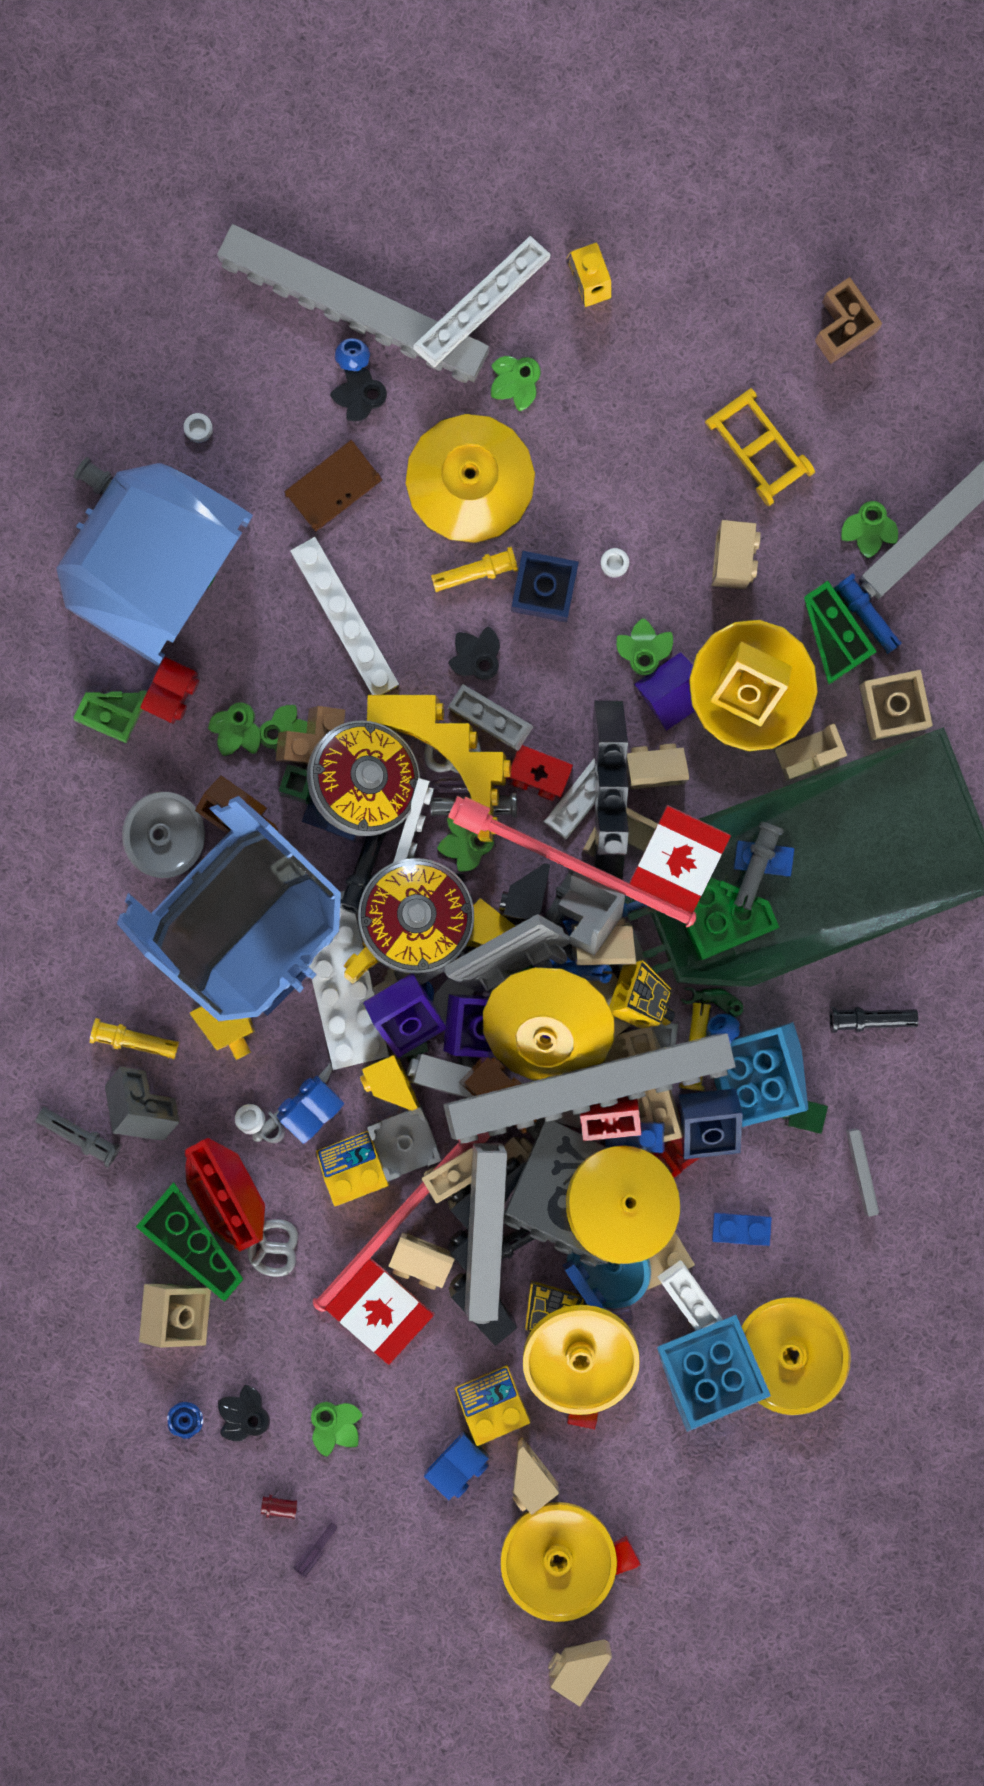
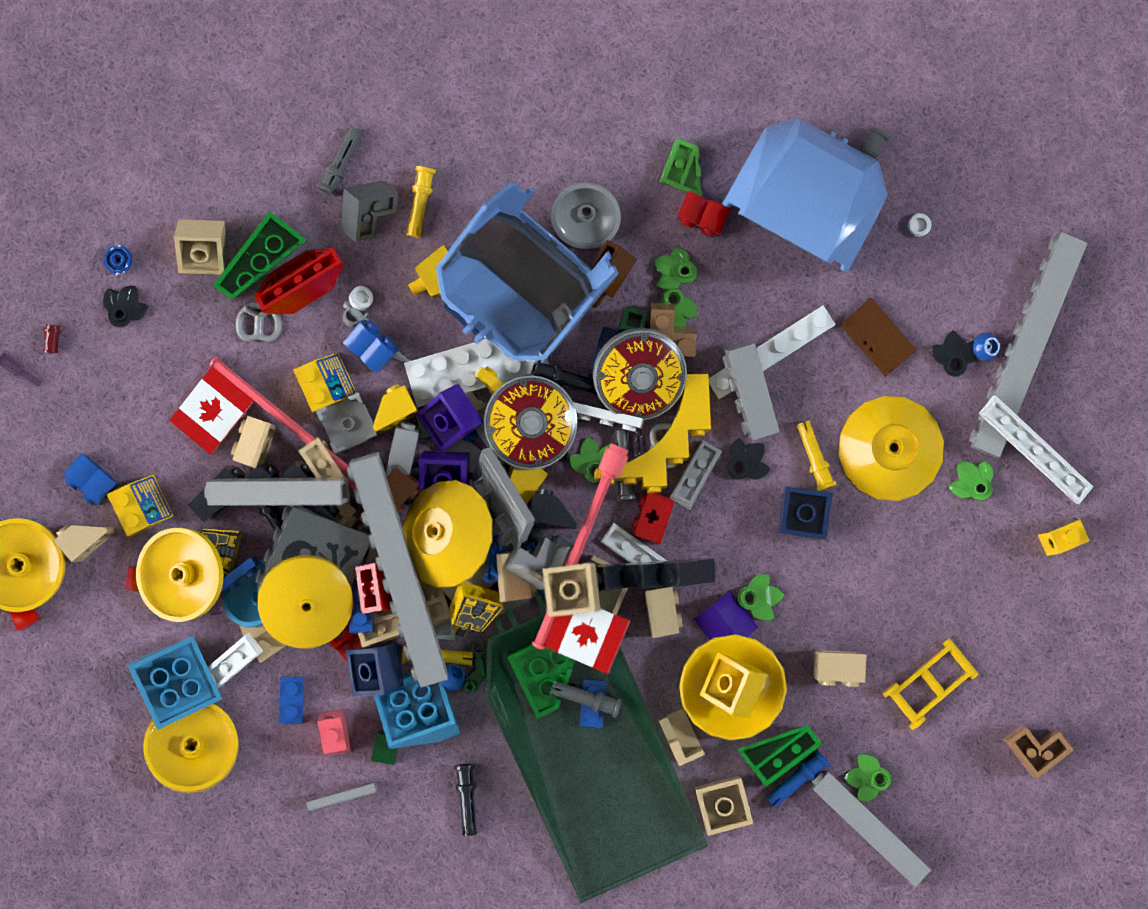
camera: 90 degrees right, 0 degrees up
(338, 1429) = (115, 382): bright green plate -> none
(390, 643) = (751, 390): none -> light grey brick
(614, 562) = (828, 569): white tile -> none
(626, 873) = (571, 590): none -> tan brick
(784, 1178) = (334, 733): none -> coral torso

